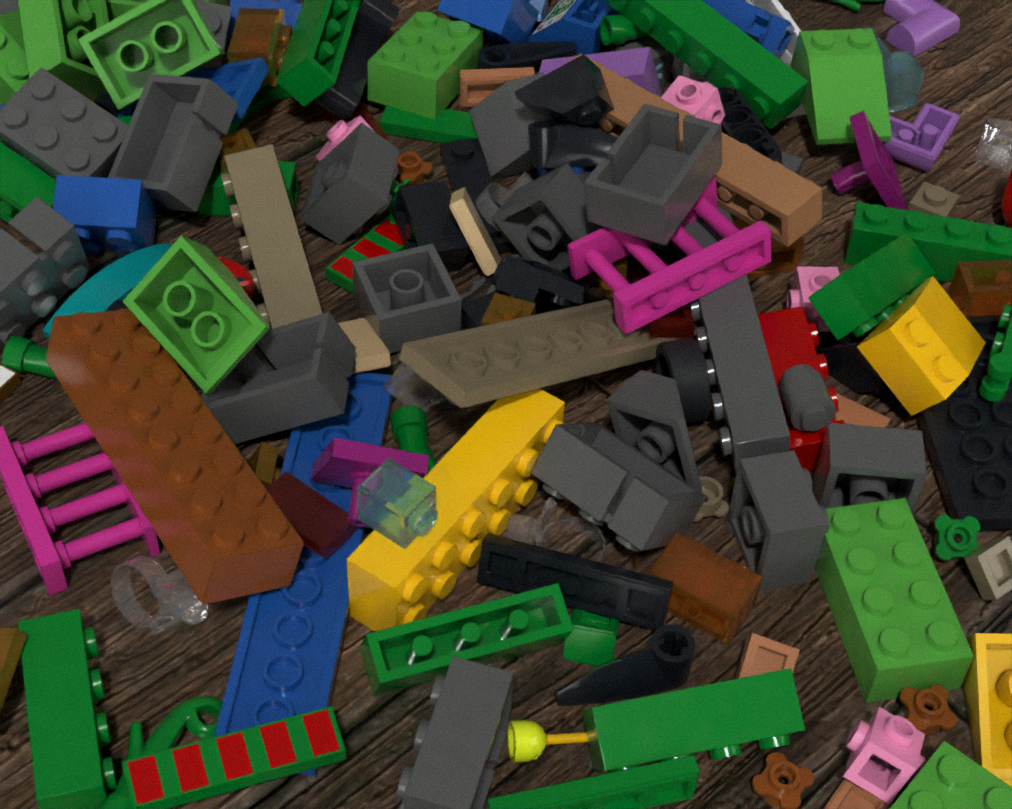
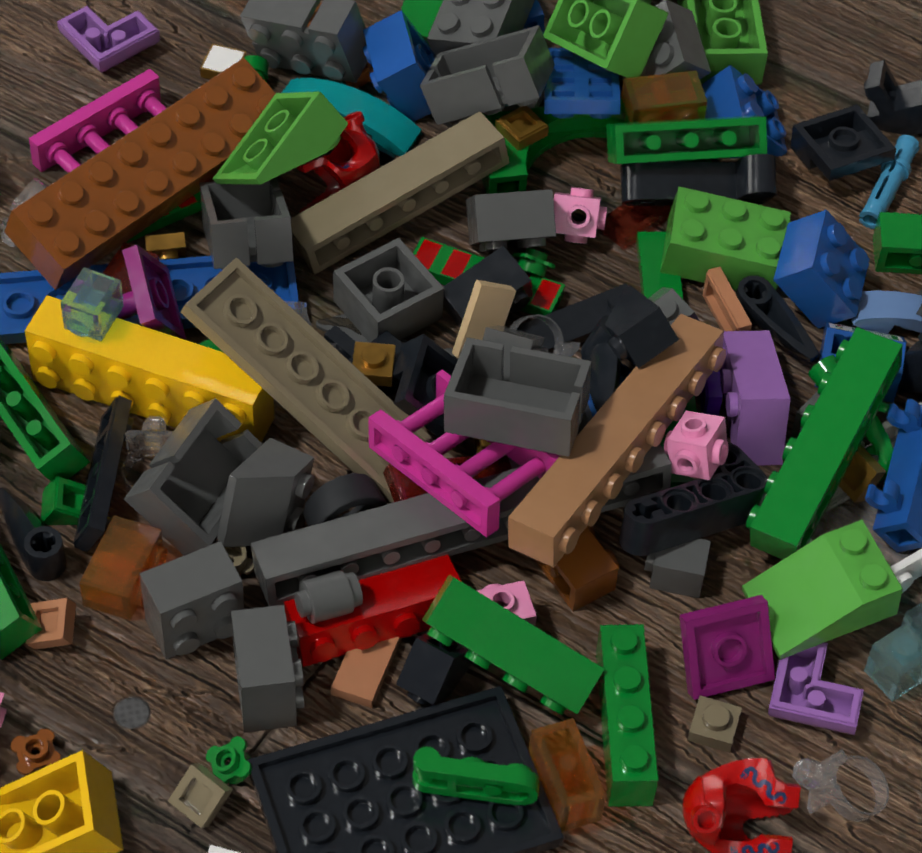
camera: 75 degrees right, 5 degrees up
(369, 350) = (315, 277): tan tile -> none
(412, 167) = (582, 269): dark orange plate -> none
(890, 602) = (143, 701): bright green brick -> none
(923, 348) = (441, 696): yellow slope -> none

